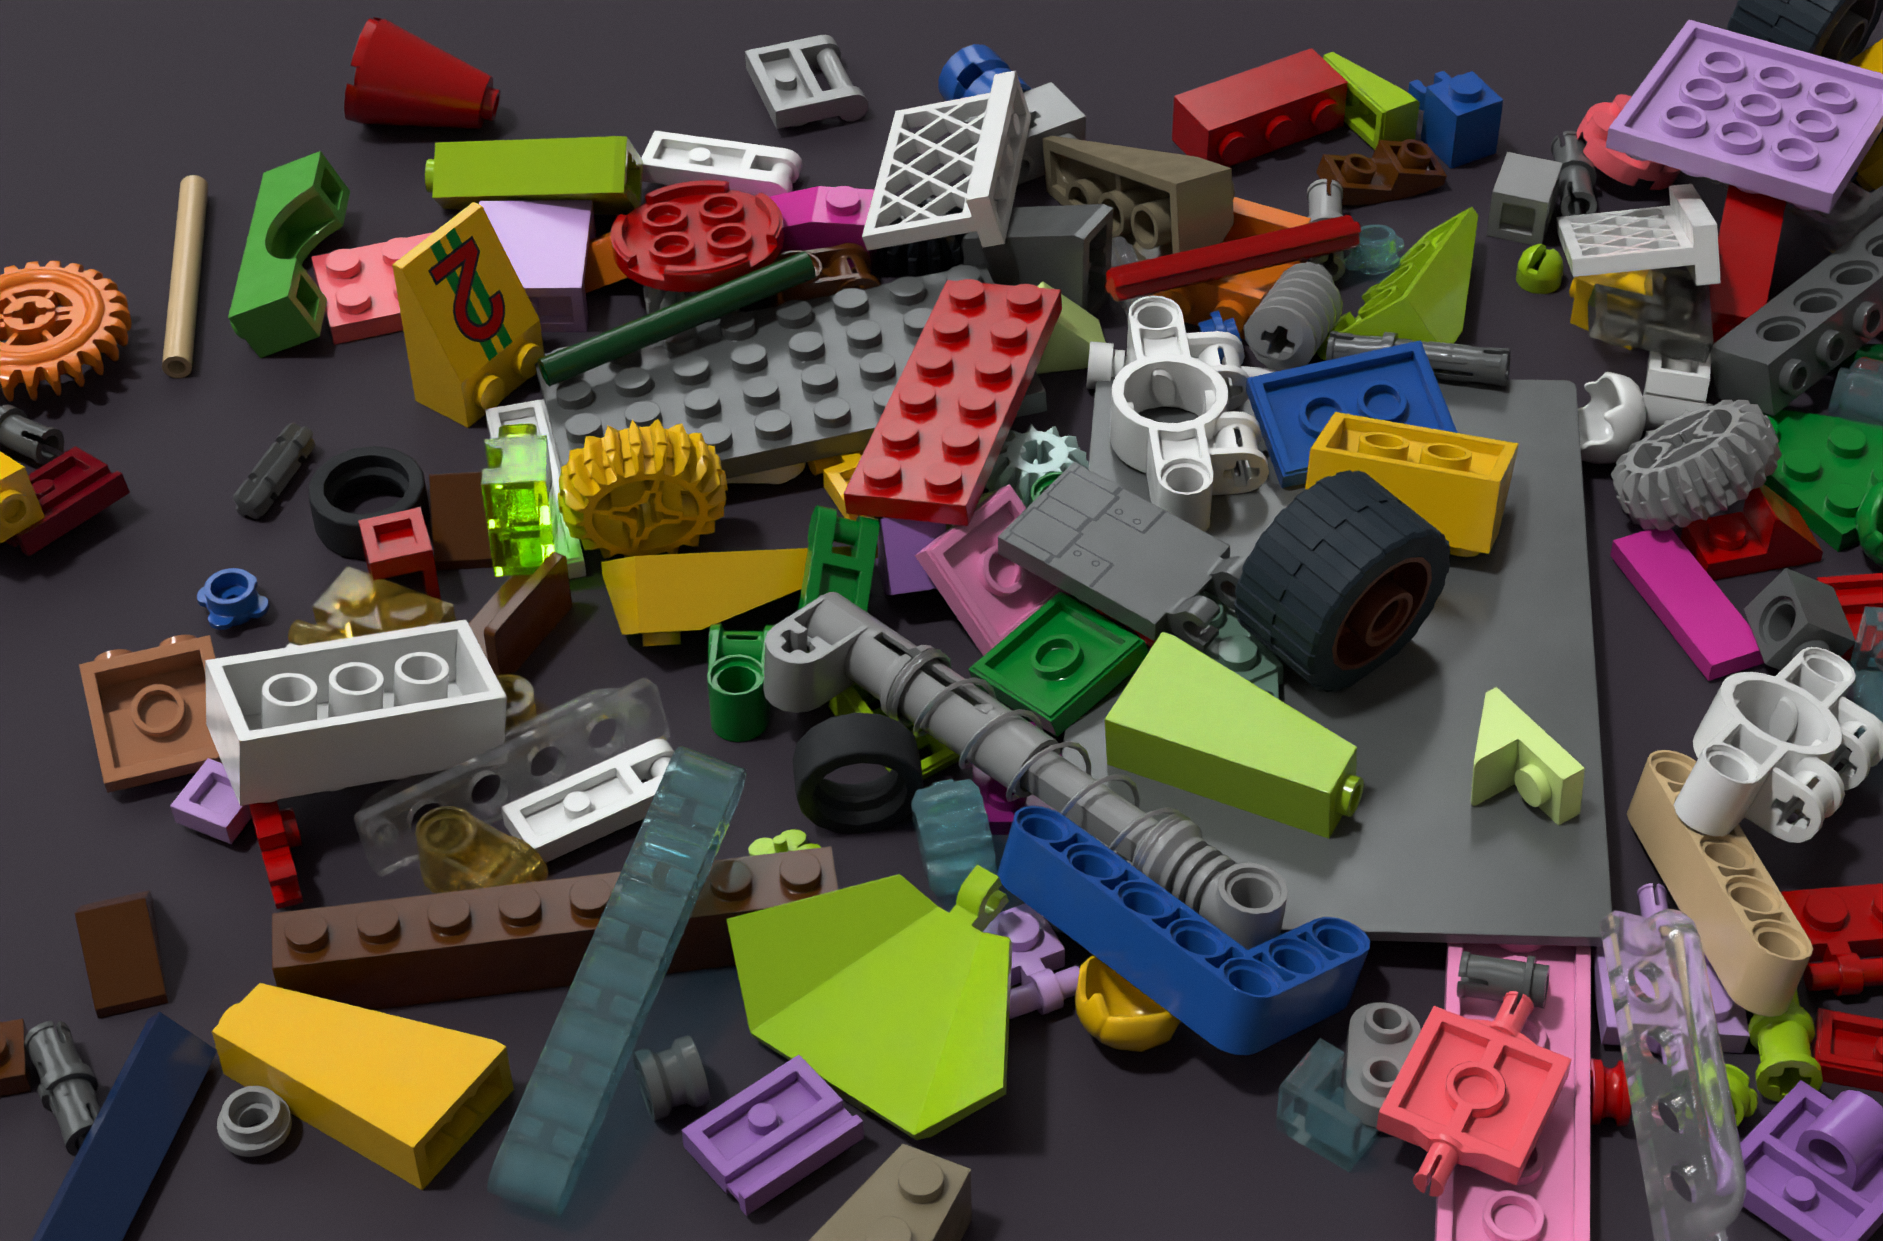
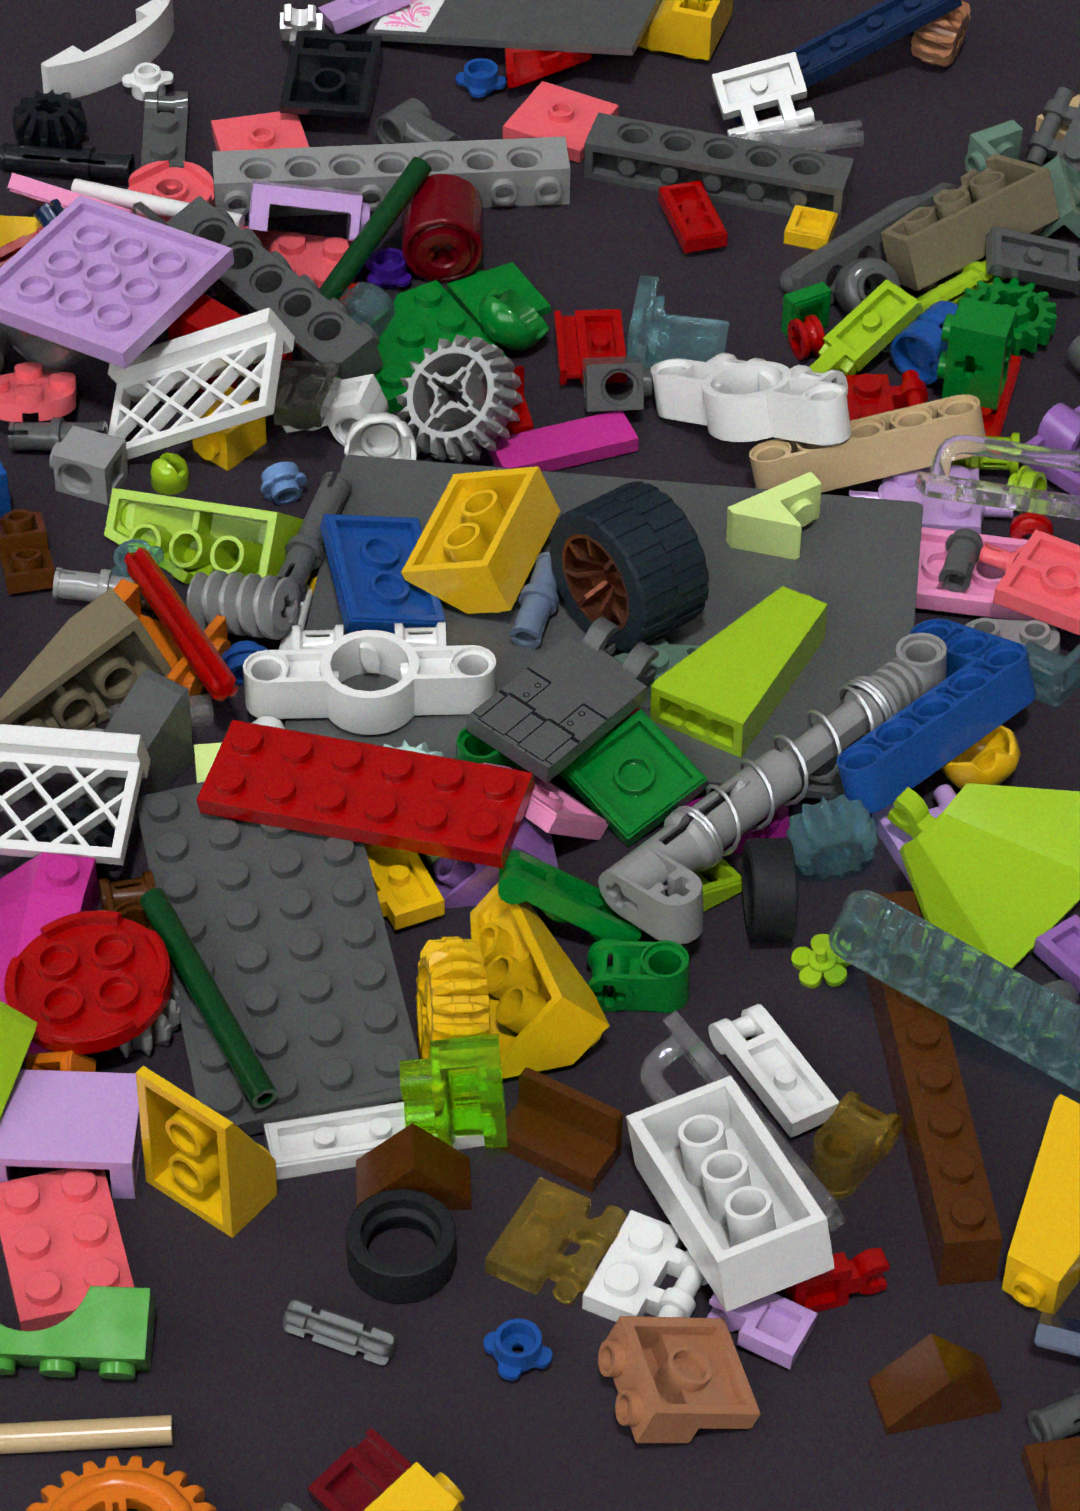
camera: 90 degrees left, 0 degrees up
(399, 546) = (487, 1200): red panel -> none
(1538, 353) = (282, 483): none -> medium blue plate

